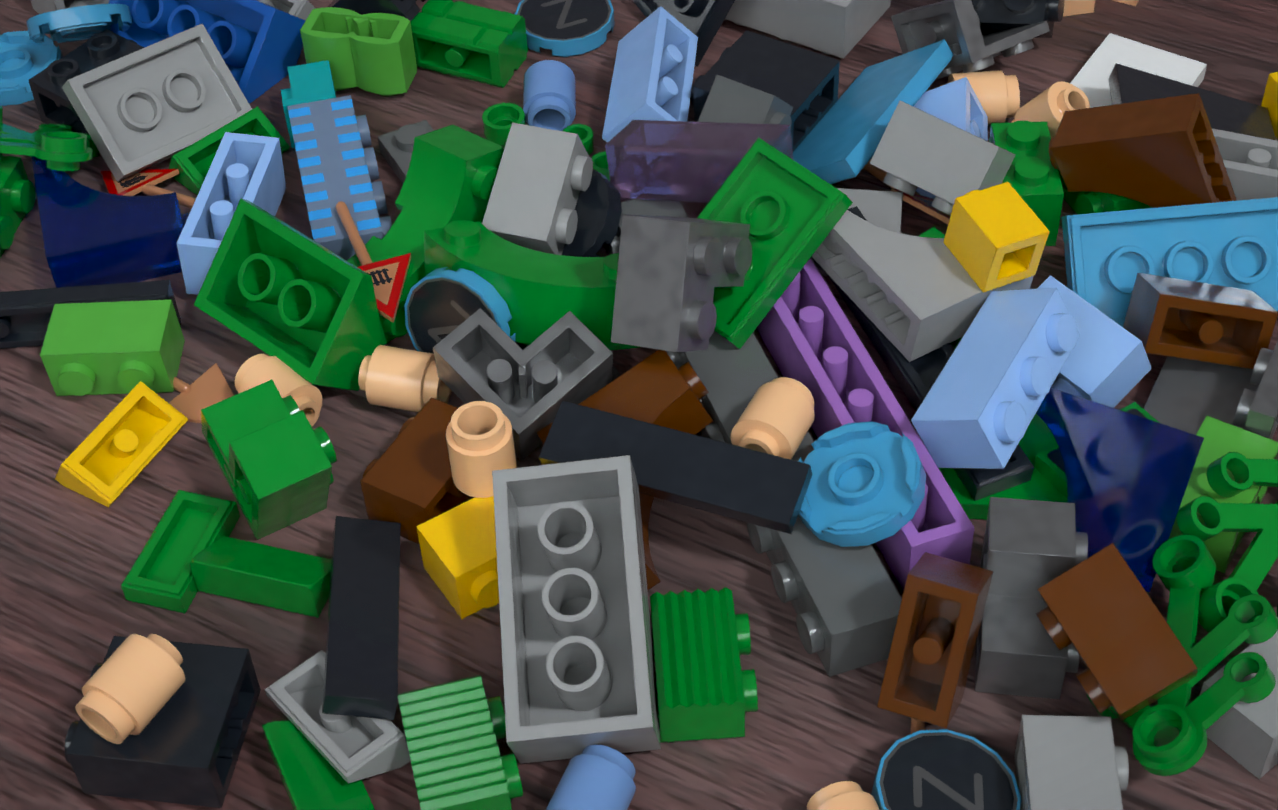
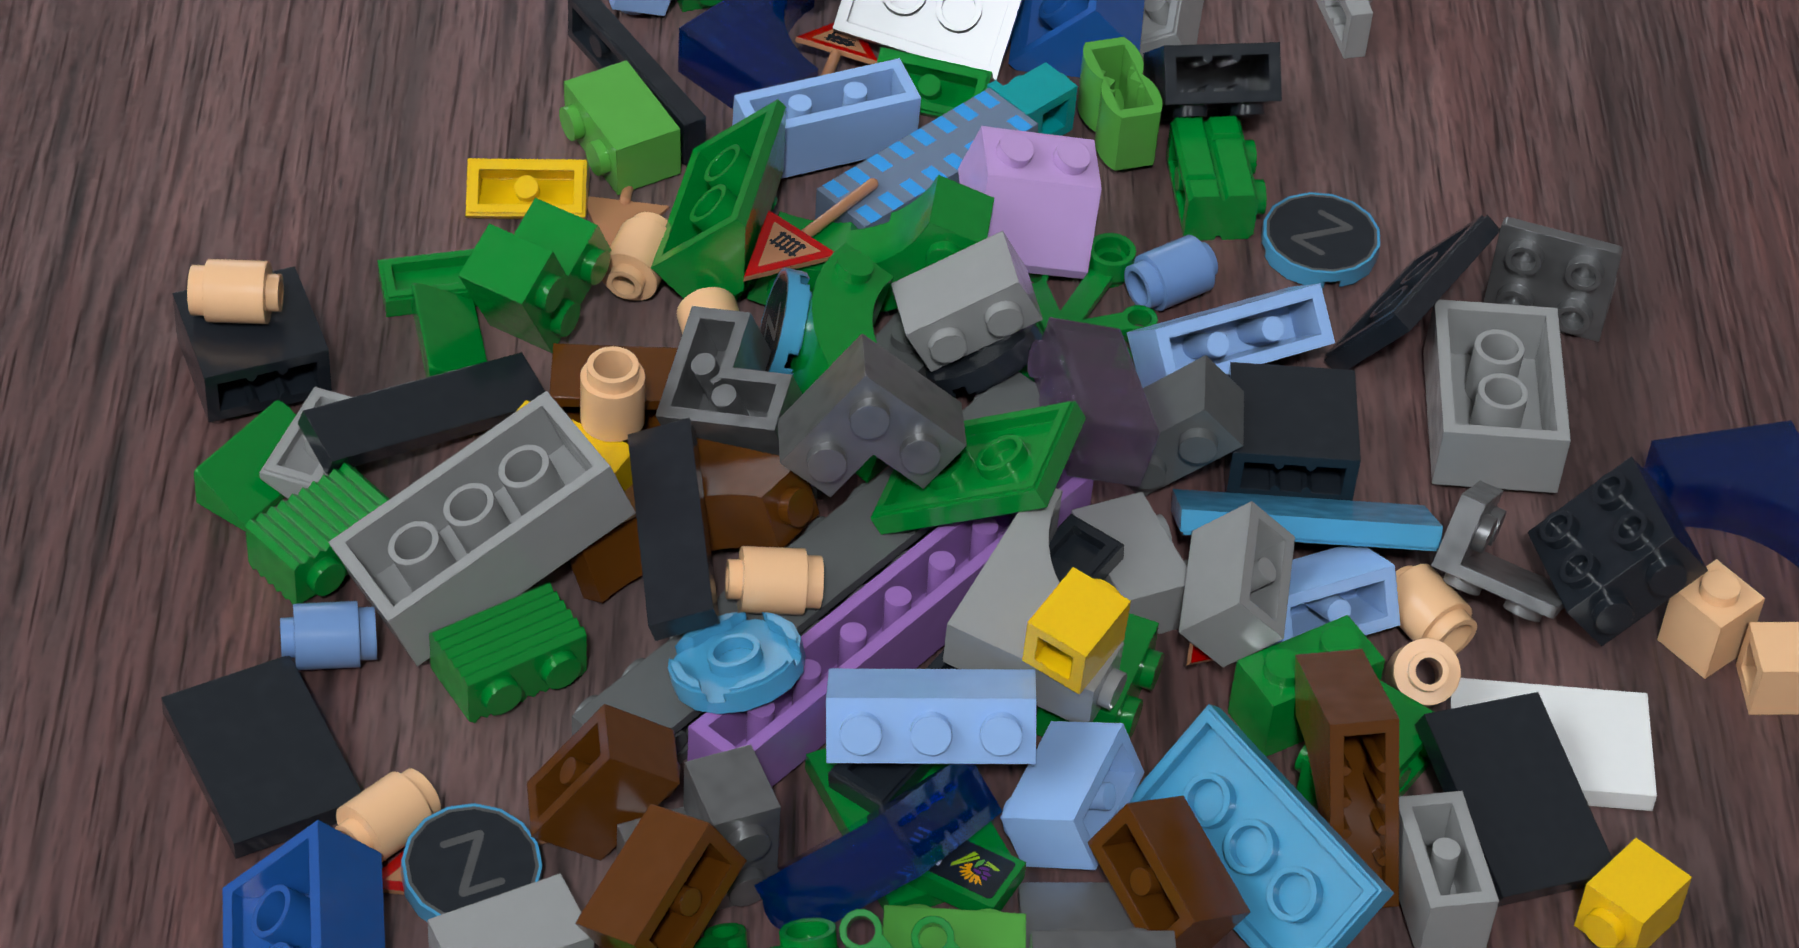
camera: 55 degrees right, 0 degrees up
(422, 101) = (1042, 195): none -> lavender slope

